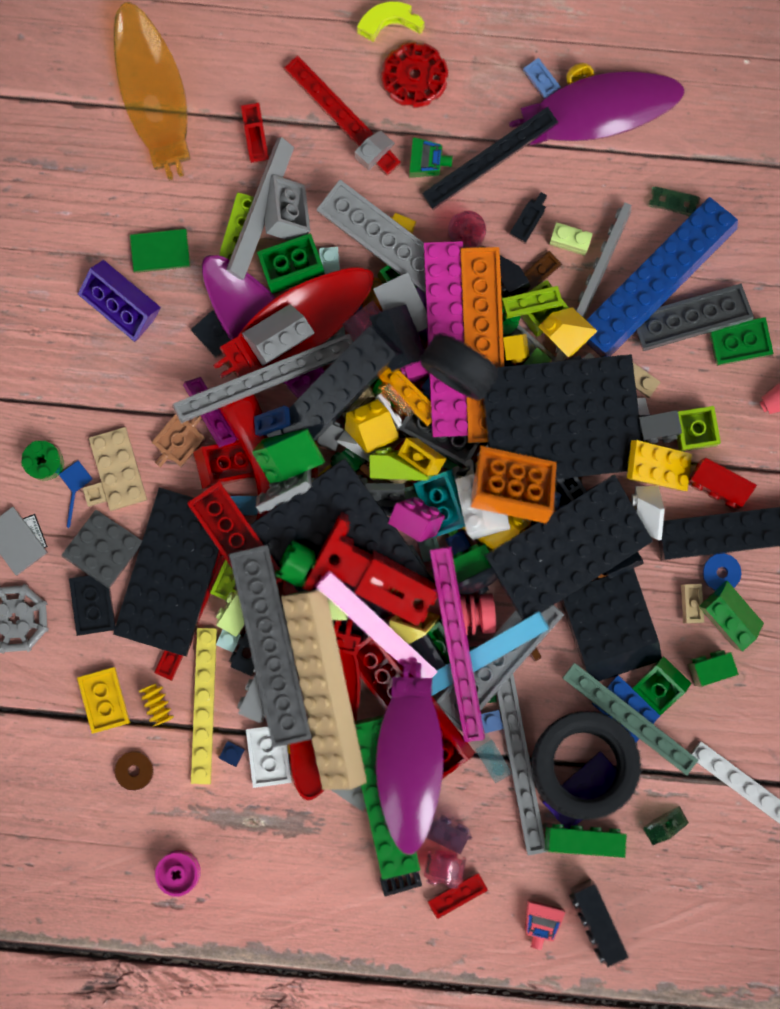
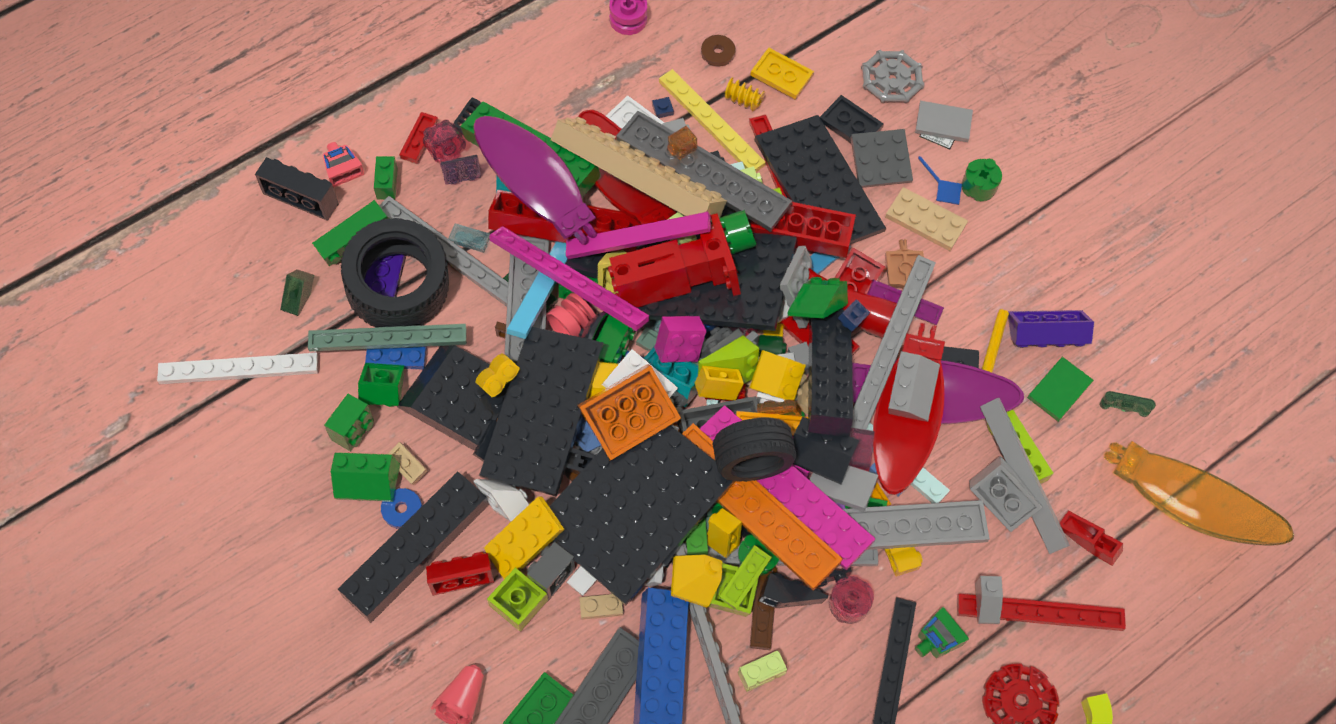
camera: 135 degrees right, 20 degrees down
(94, 494) = (924, 188): tan plate -> none
(125, 196) = (1127, 403): none -> clear green plate
(171, 326) = (995, 340): none -> yellow axle
(270, 679) = (682, 142): none -> clear orange brick
(291, 263) = (958, 454): green brick -> none
(491, 721) = (497, 261): medium blue plate -> none
(517, 875) = (385, 177): none -> green brick
(529, 218) = (811, 660): black hinge -> none
(581, 603) = (495, 377): none -> yellow brick

